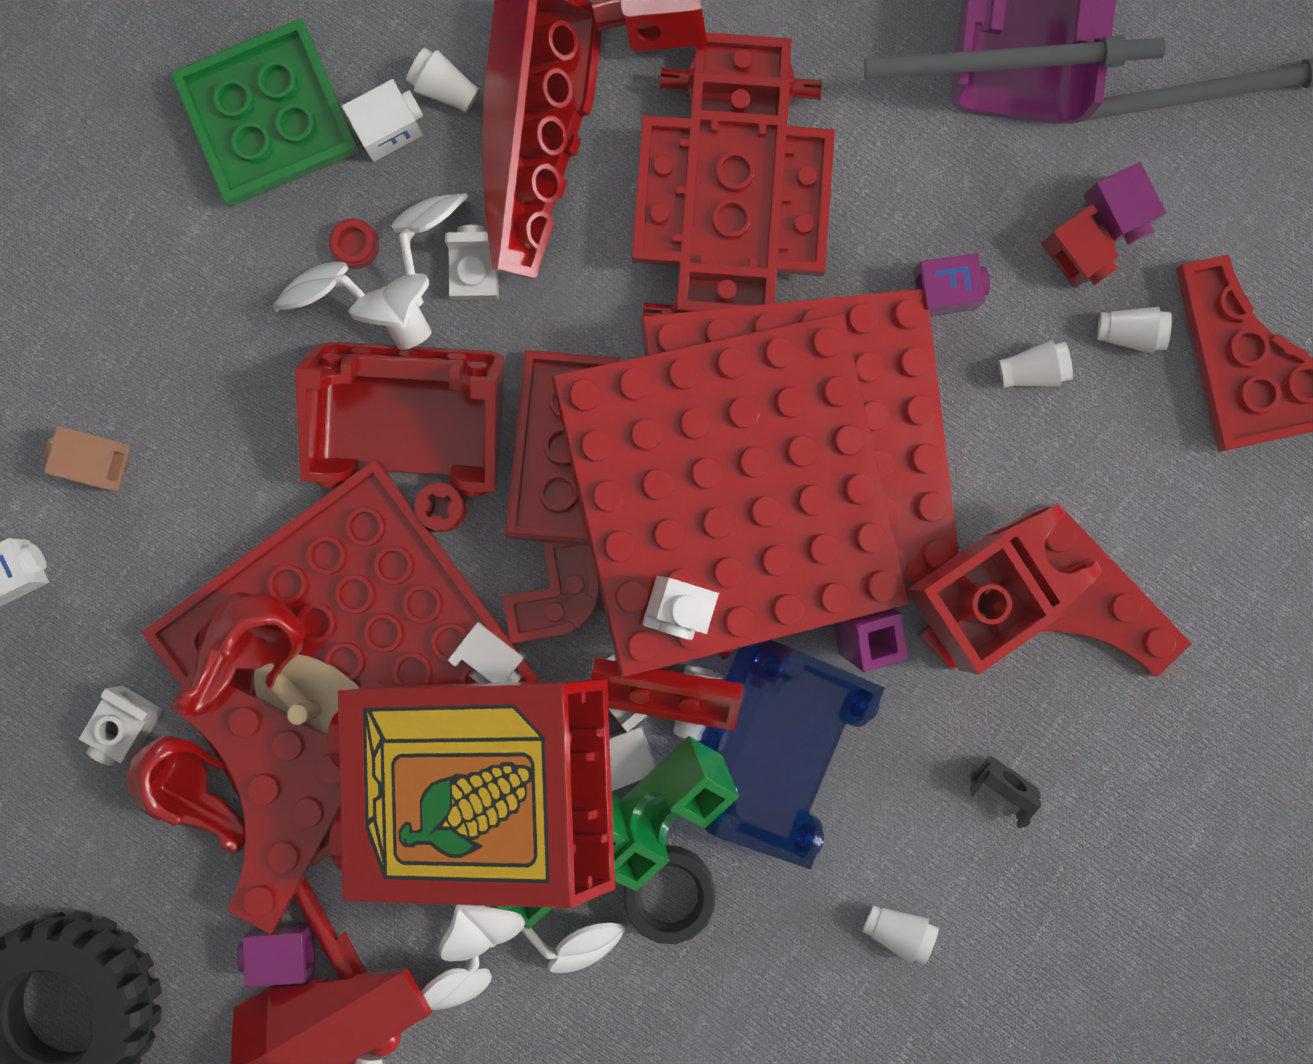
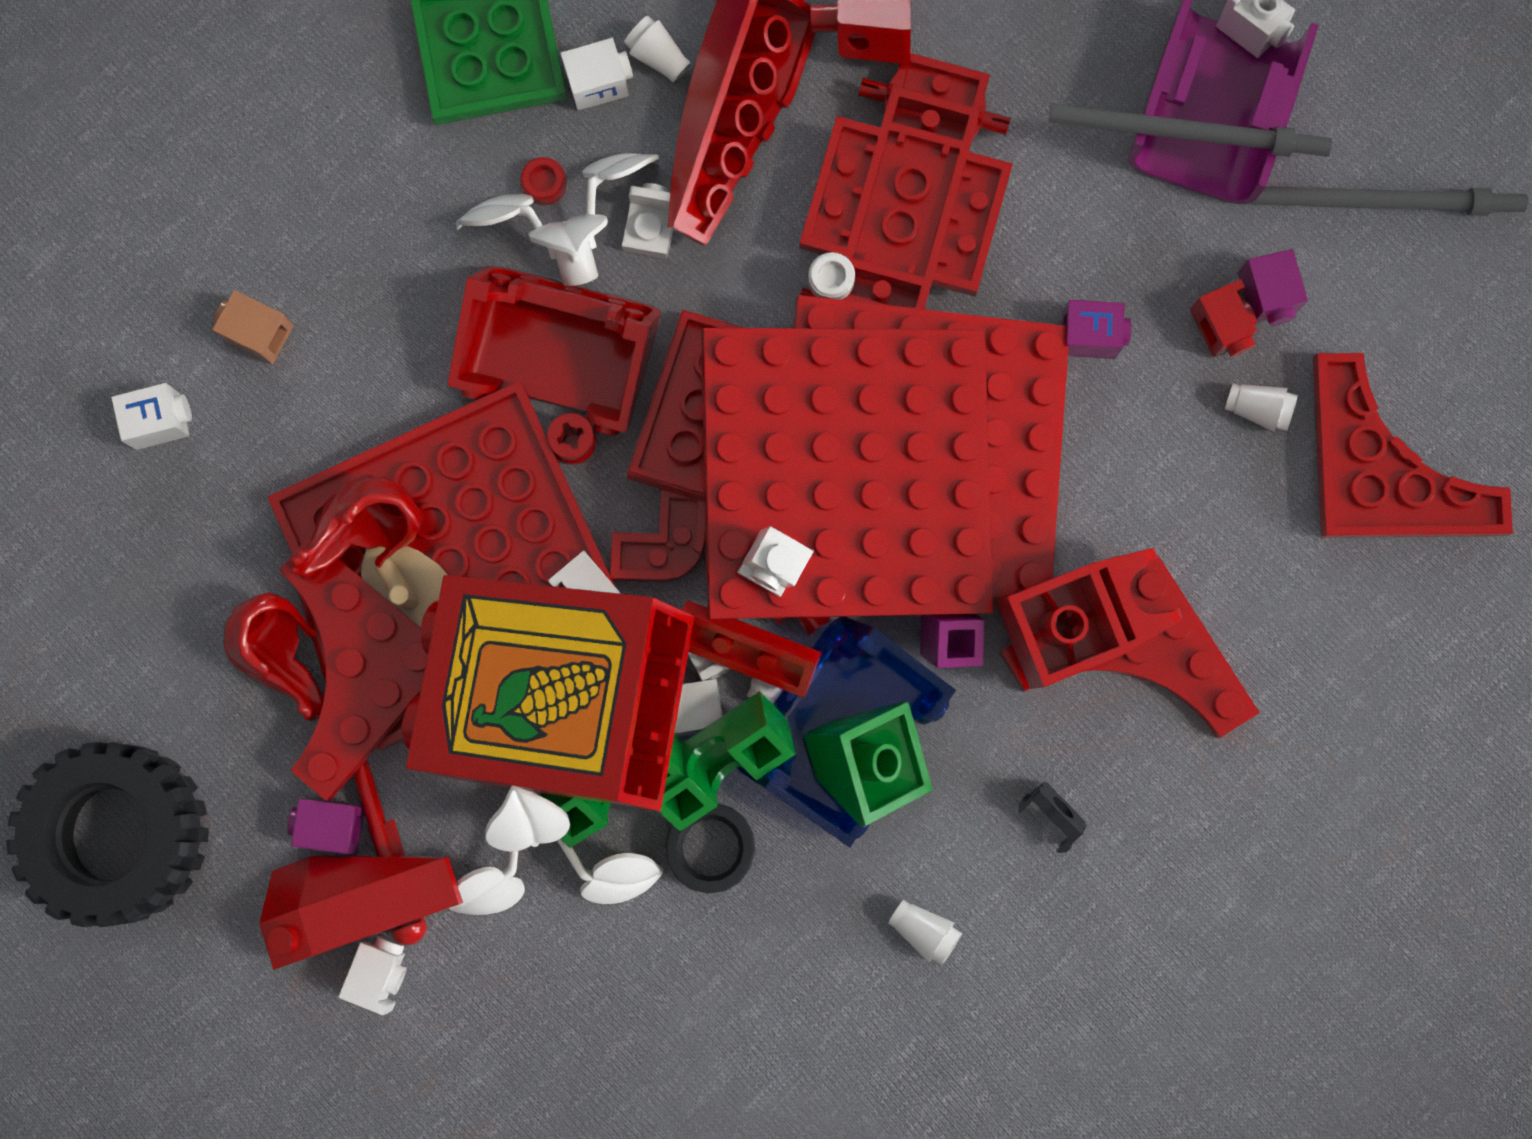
camera: 15 degrees right, 5 degrees down
(134, 720) = (242, 580): white brick -> none
(672, 287) = (831, 276): none -> white tile
(812, 777) = (870, 761): none -> green slope
(1039, 366) = (1162, 421): white cone -> none

